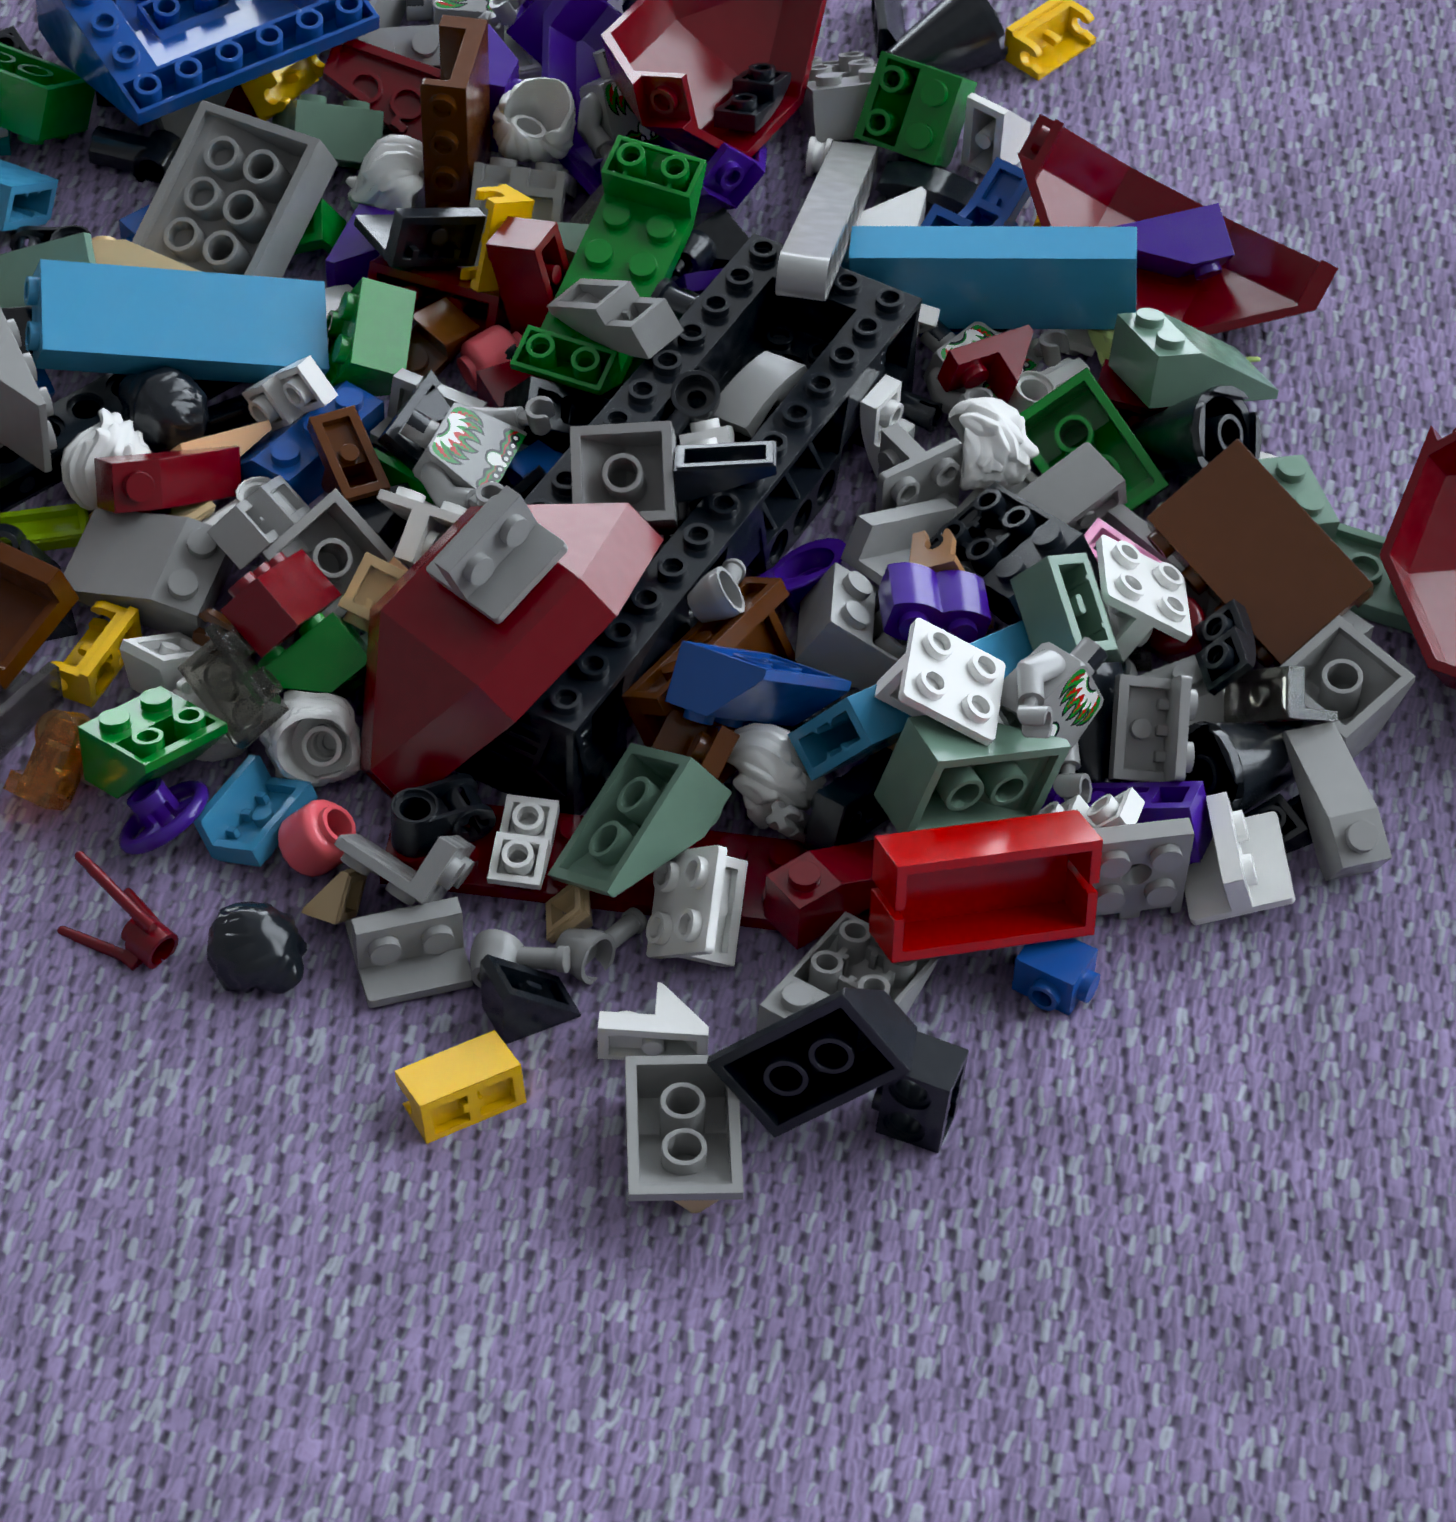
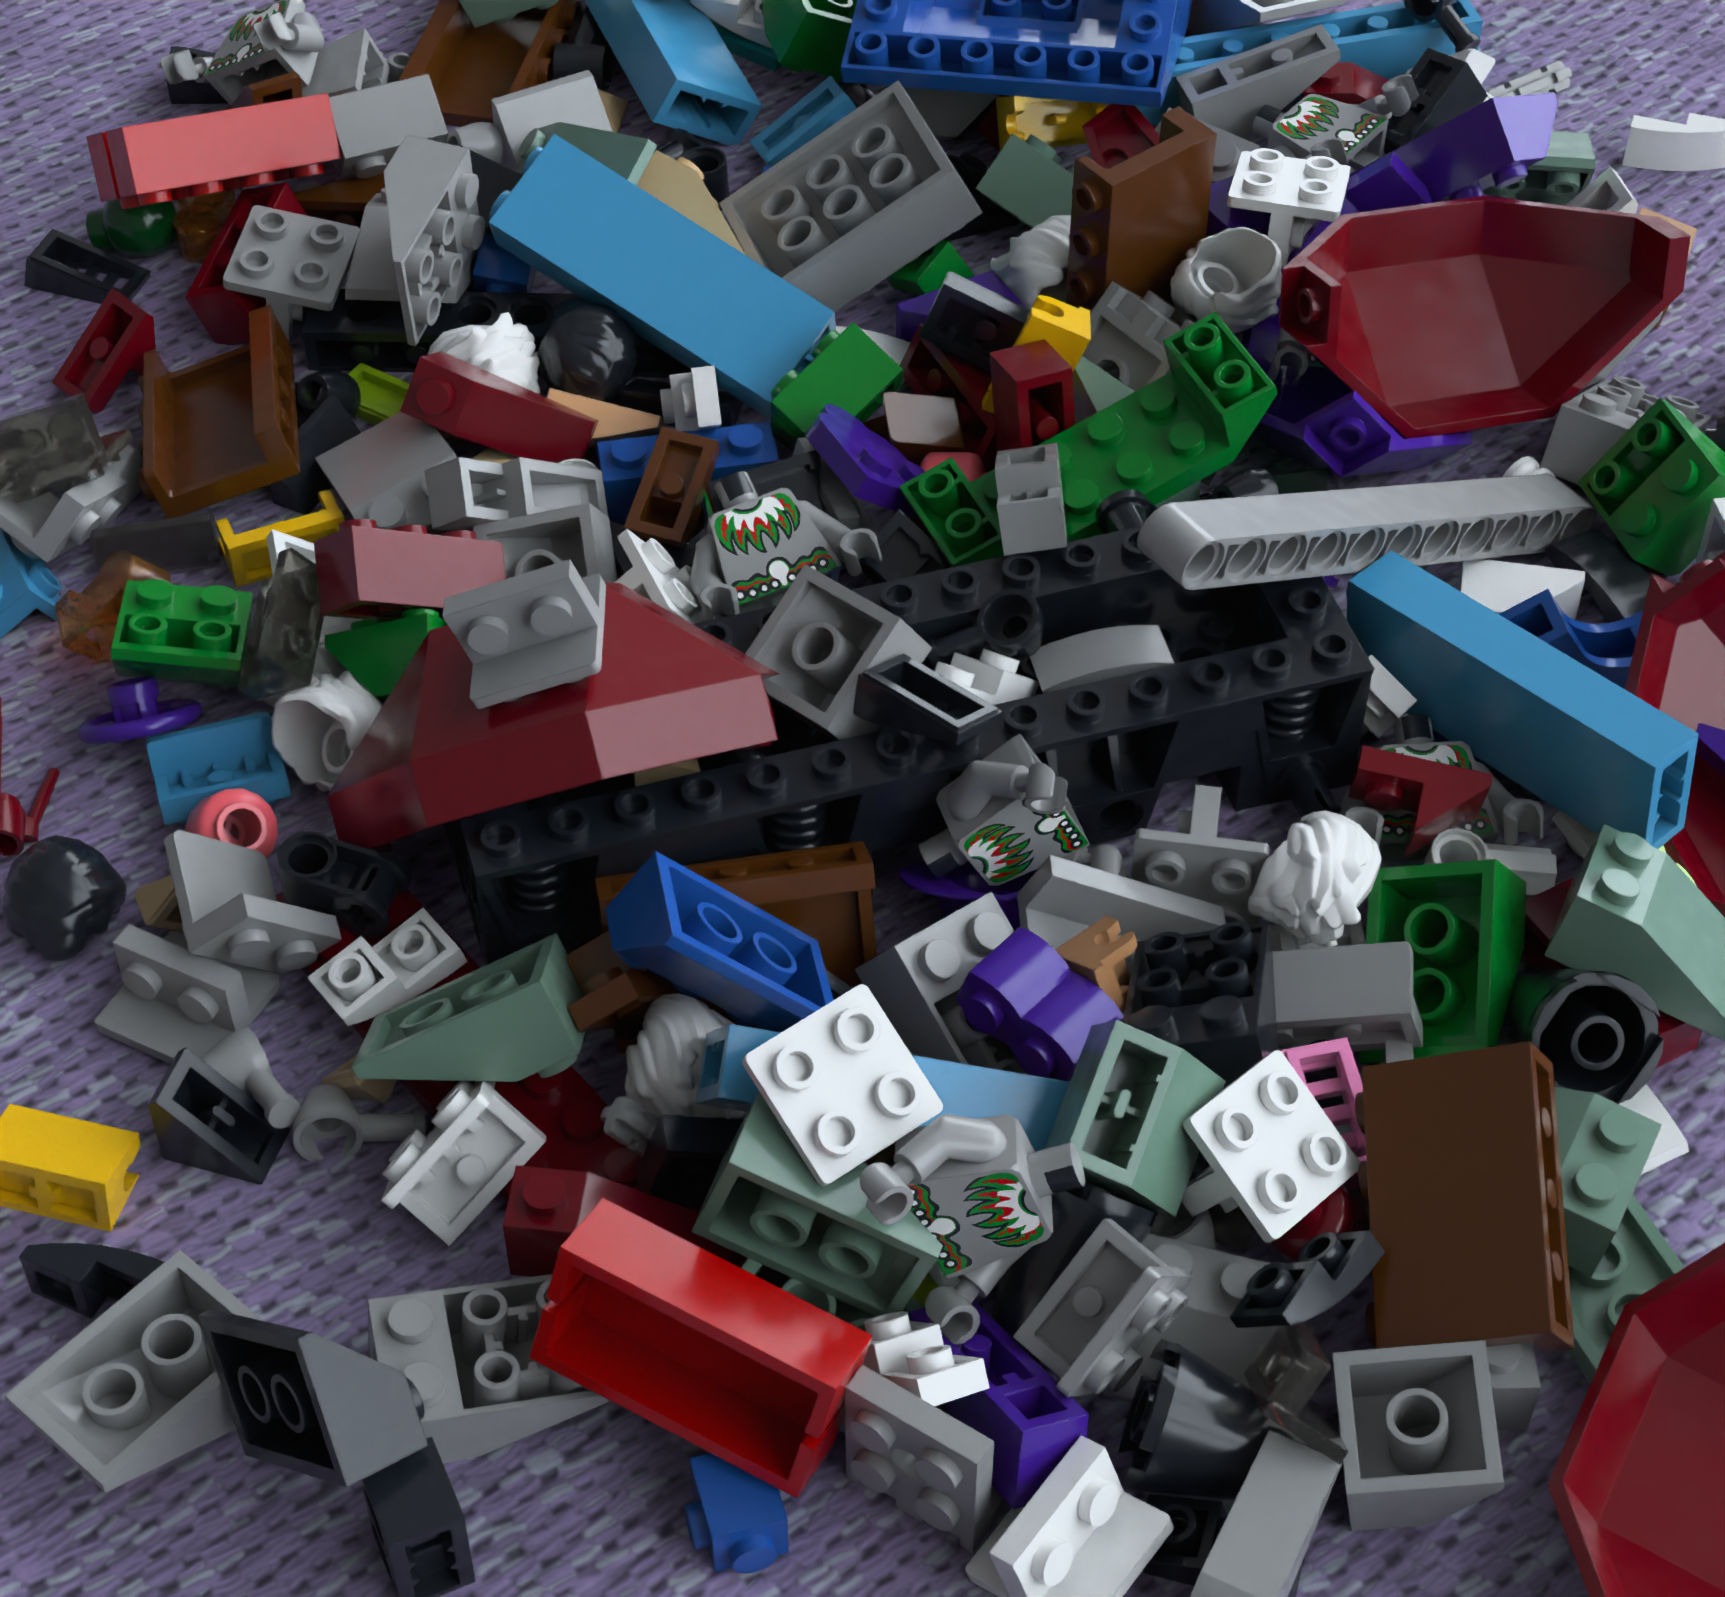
camera: 45 degrees right, 0 degrees up
(113, 179) = (803, 122): none -> dark azure bracket
(479, 364) = (862, 459): none -> dark purple plate
(528, 41) = (1289, 191): none -> white bracket
(555, 1126) = (84, 1274): none -> black slope
(669, 1031) = (288, 1259): white slope -> none
(718, 593) = (790, 835): light grey bar -> none
(753, 98) = (1493, 380): black slope -> none
(808, 510) = (1009, 819): none -> light grey torso
(878, 411) = (1246, 773): white slope -> none

